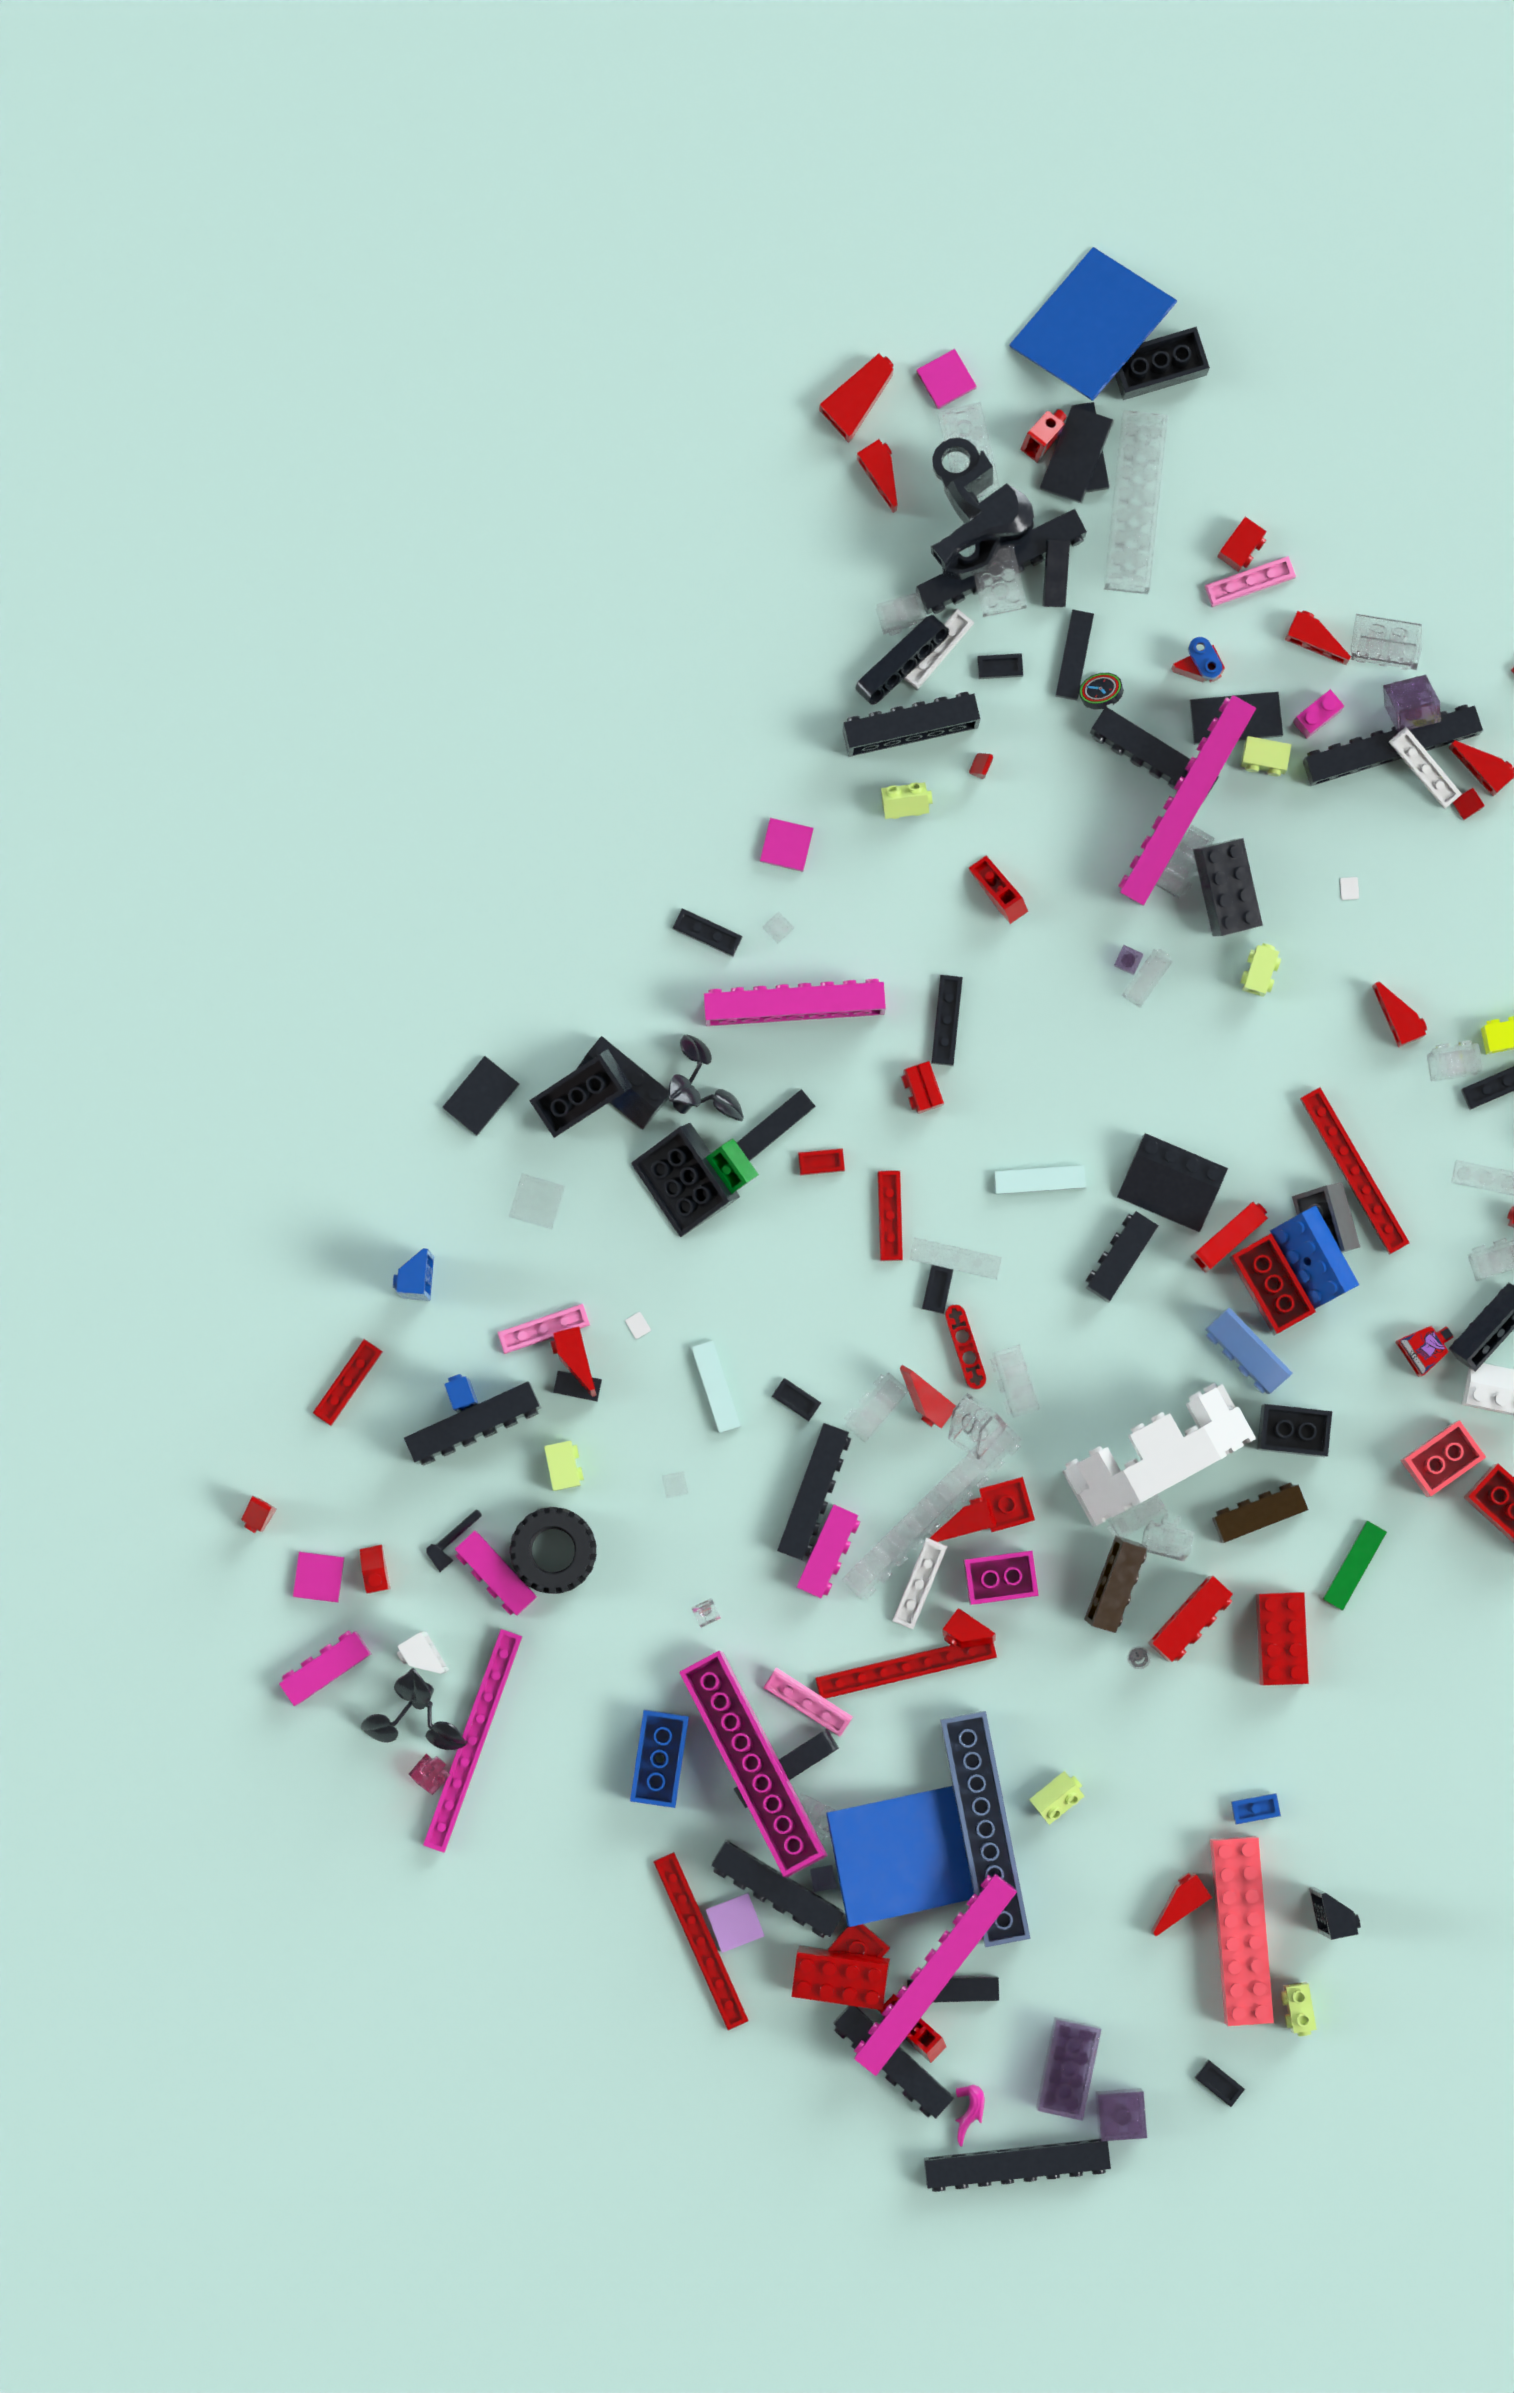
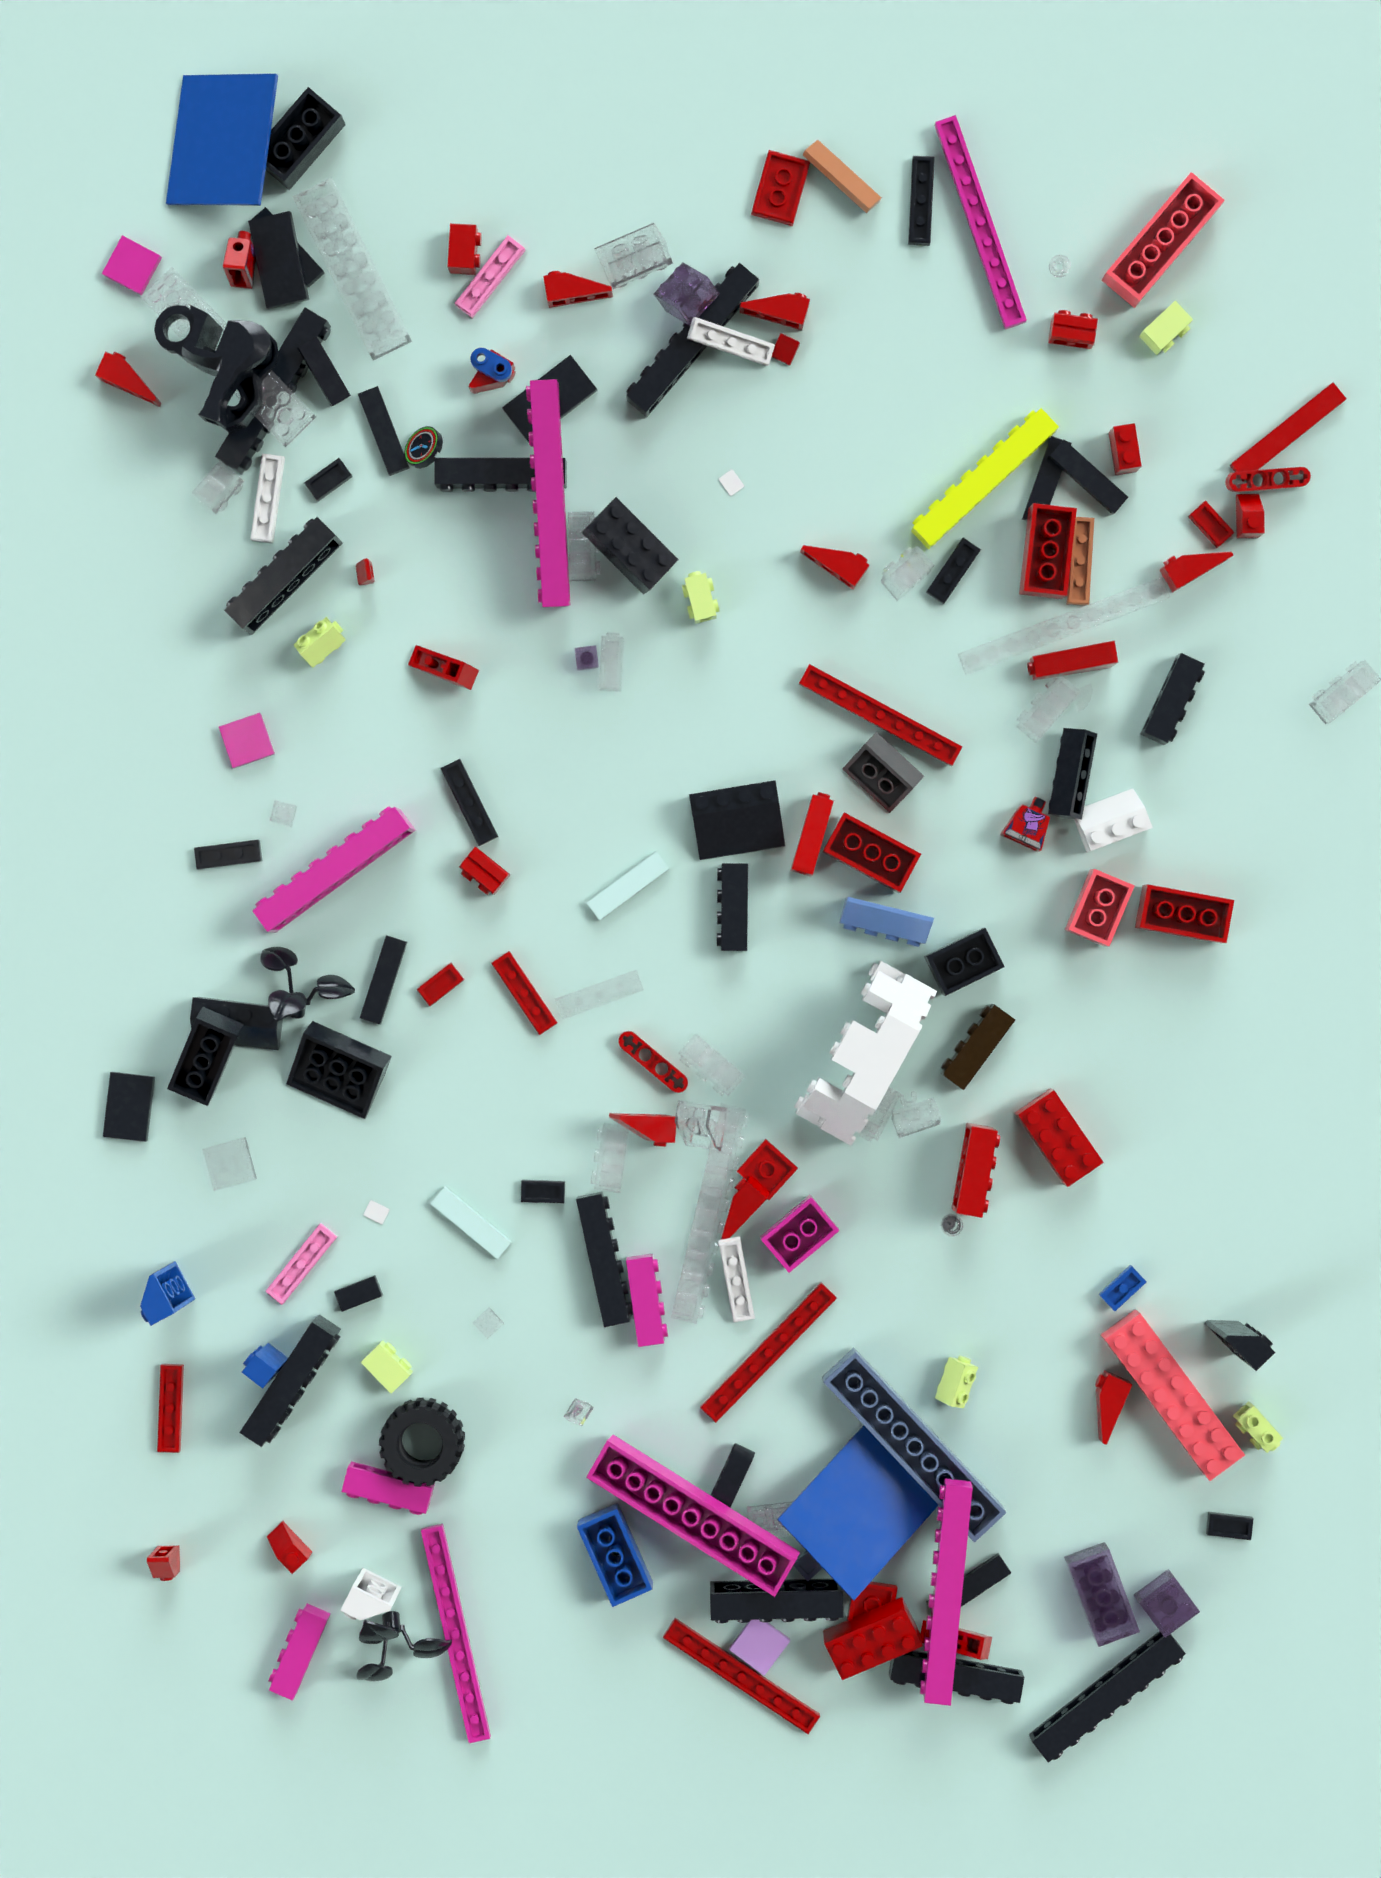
camera: 30 degrees left, 5 degrees up
(318, 1577) = (247, 1580): dark pink tile -> none
(430, 1773) = (437, 1683): clear pink brick -> none
(435, 1551) = (329, 1499): black piece -> none
(572, 1354) = (336, 1270): red slope -> none
(732, 1166) = (368, 1036): green brick -> none
(808, 1702) = (706, 1431): bright pink tile -> none
(855, 398) = (66, 326): red slope -> none
(902, 659) = (243, 525): black beam -> none
(937, 1289) = (601, 1028): black tile -> none
(966, 1631) = (798, 1295): red slope -> none
(974, 2111) = (1046, 1671): dark pink piece -> none
(1116, 1584) = (896, 1180): dark brown brick -> none
(1265, 756) = (593, 415): yellowish green brick -> none
(1314, 1257) = (892, 809): blue brick -> none
(1318, 714) = (615, 352): dark pink brick -> none
(1354, 1565) = (1080, 1039): green tile -> none

